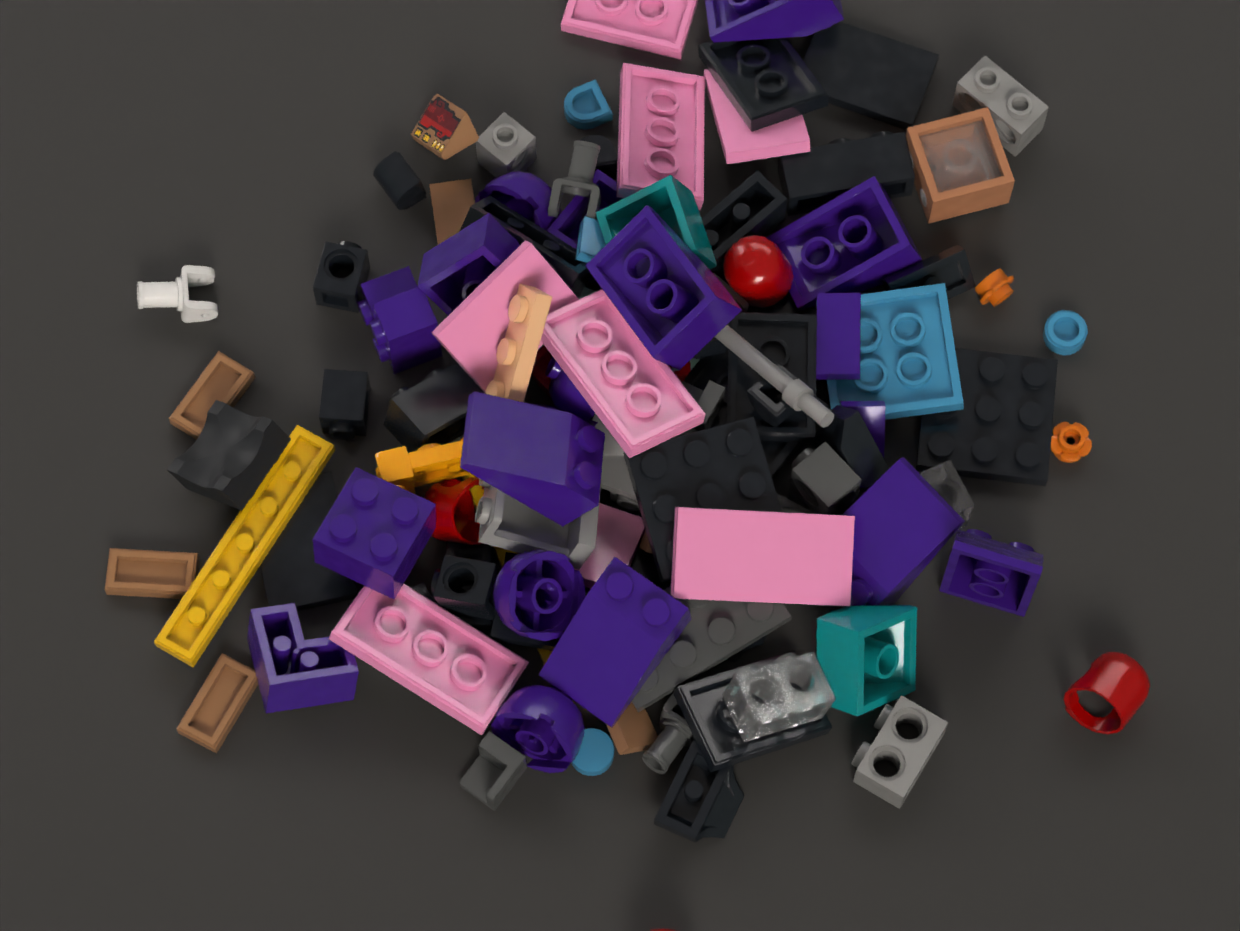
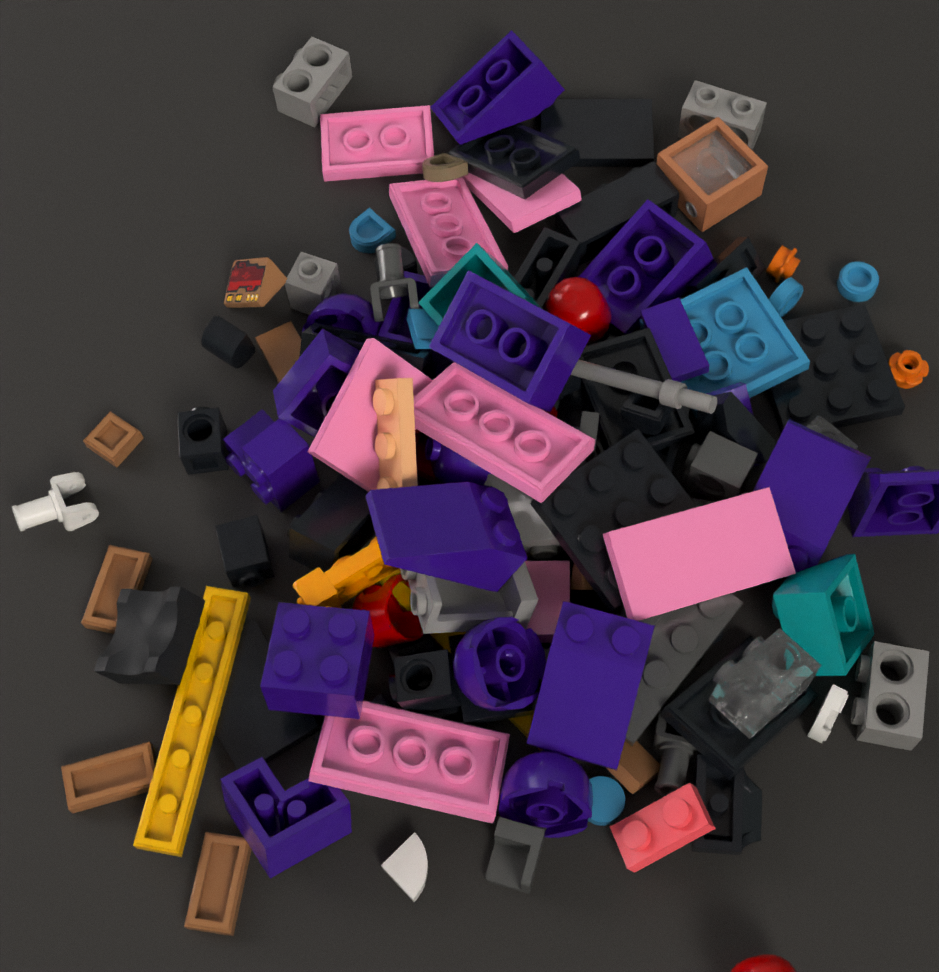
camera: 15 degrees left, 5 degrees down
(255, 243) = (113, 439): none -> medium nougat tile
(394, 748) = (408, 867): none -> white tile
(633, 793) = (662, 827): none -> coral plate
(686, 63) = (444, 168): none -> dark tan tile
(833, 747) = (827, 714): none -> white tile
(978, 325) = (786, 296): none -> dark azure tile

